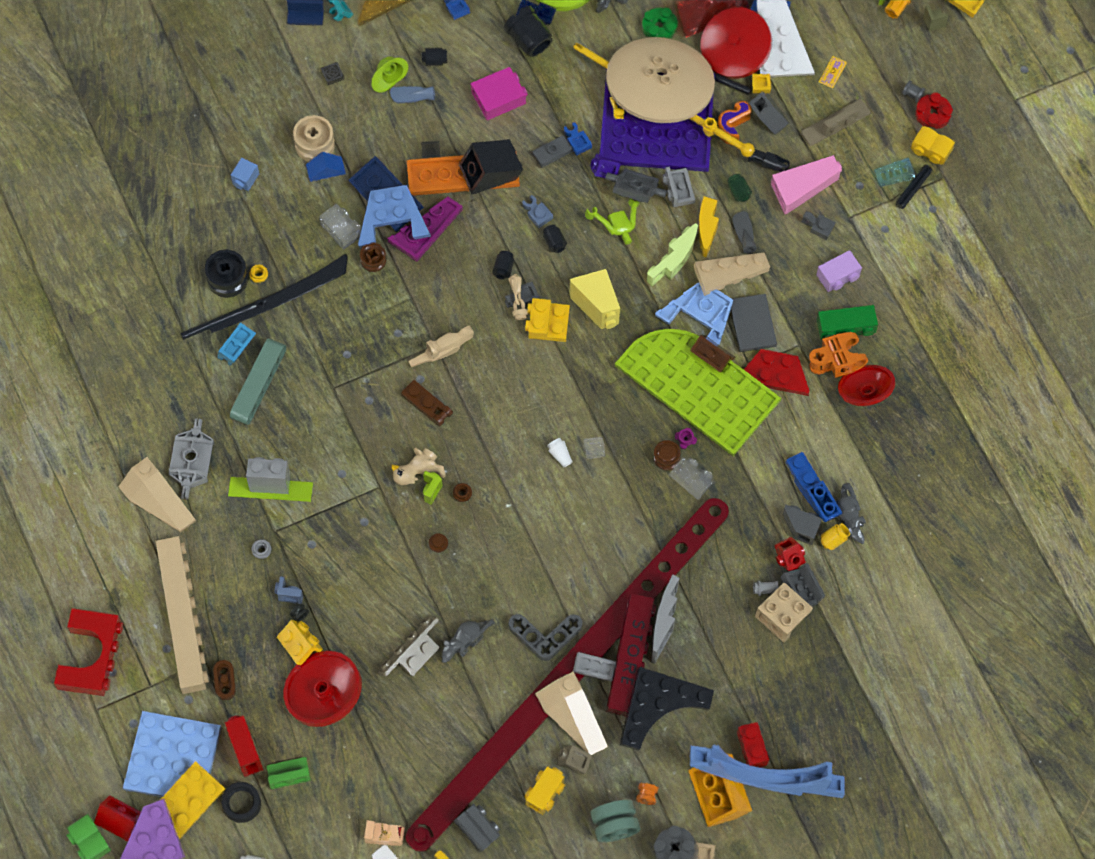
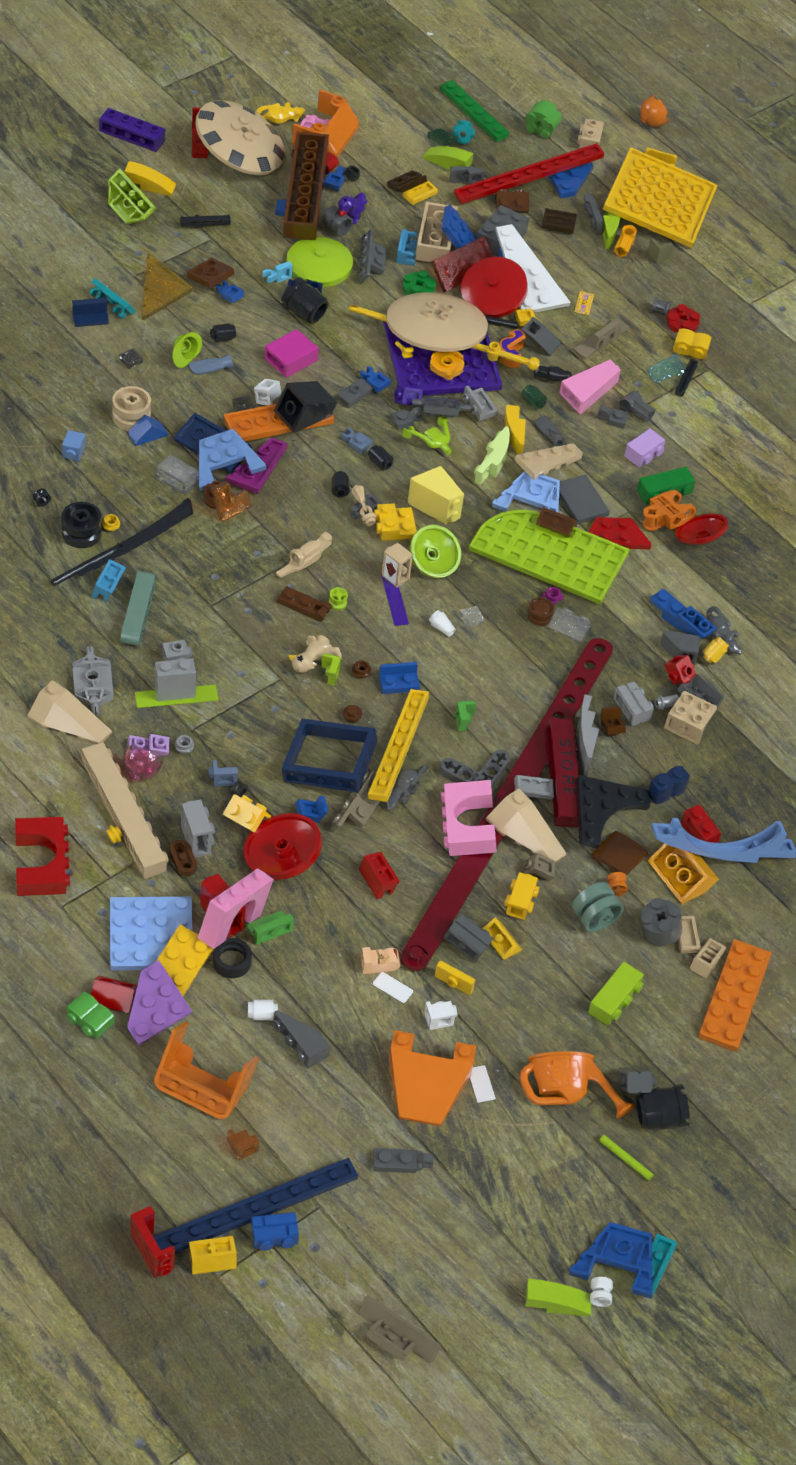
camera: 20 degrees left, 15 degrees down
(165, 640) = (114, 834): none -> yellow plate
(197, 232) = (41, 497): none -> black bush
(209, 567) = (141, 763): none -> clear pink cylinder
(226, 544) = (155, 744): none -> lavender slope
(243, 654) = (197, 827): none -> light grey brick
(269, 744) = (248, 892): none -> bright pink arch
(279, 444) = (176, 650): none -> light grey brick
(364, 649) = (311, 809): none -> blue bracket
(380, 273) = (229, 504): none -> clear orange plate
(384, 619) = (324, 777): none -> dark blue window
(410, 736) = (378, 874): none -> red hinge
(459, 138) = (267, 391): none -> white brick
(462, 399) = (338, 598): none -> lime wheel
(471, 592) = (398, 745): none -> yellow plate
(497, 510) = (398, 677): none -> blue bracket
(511, 666) = (460, 837): none -> bright pink arch
(513, 831) = (502, 939): none -> yellow slope
(522, 411) = (396, 603): none -> dark purple sticker
(530, 377) = (397, 564): none -> tan brick
(548, 567) = (463, 713): none -> bright green bracket
(588, 367) = (442, 546): none -> lime dish
(594, 192) = (404, 418): none -> dark grey plate
(652, 142) = (444, 370): none -> light orange plate
(661, 758) = (619, 853): none -> reddish brown slope
(701, 602) = (611, 721): none -> reddish brown bracket
(729, 584) = (633, 703): none -> light grey brick
(730, 689) = (668, 784): none -> dark blue brick
(845, 212) = (634, 403): none -> dark grey piece

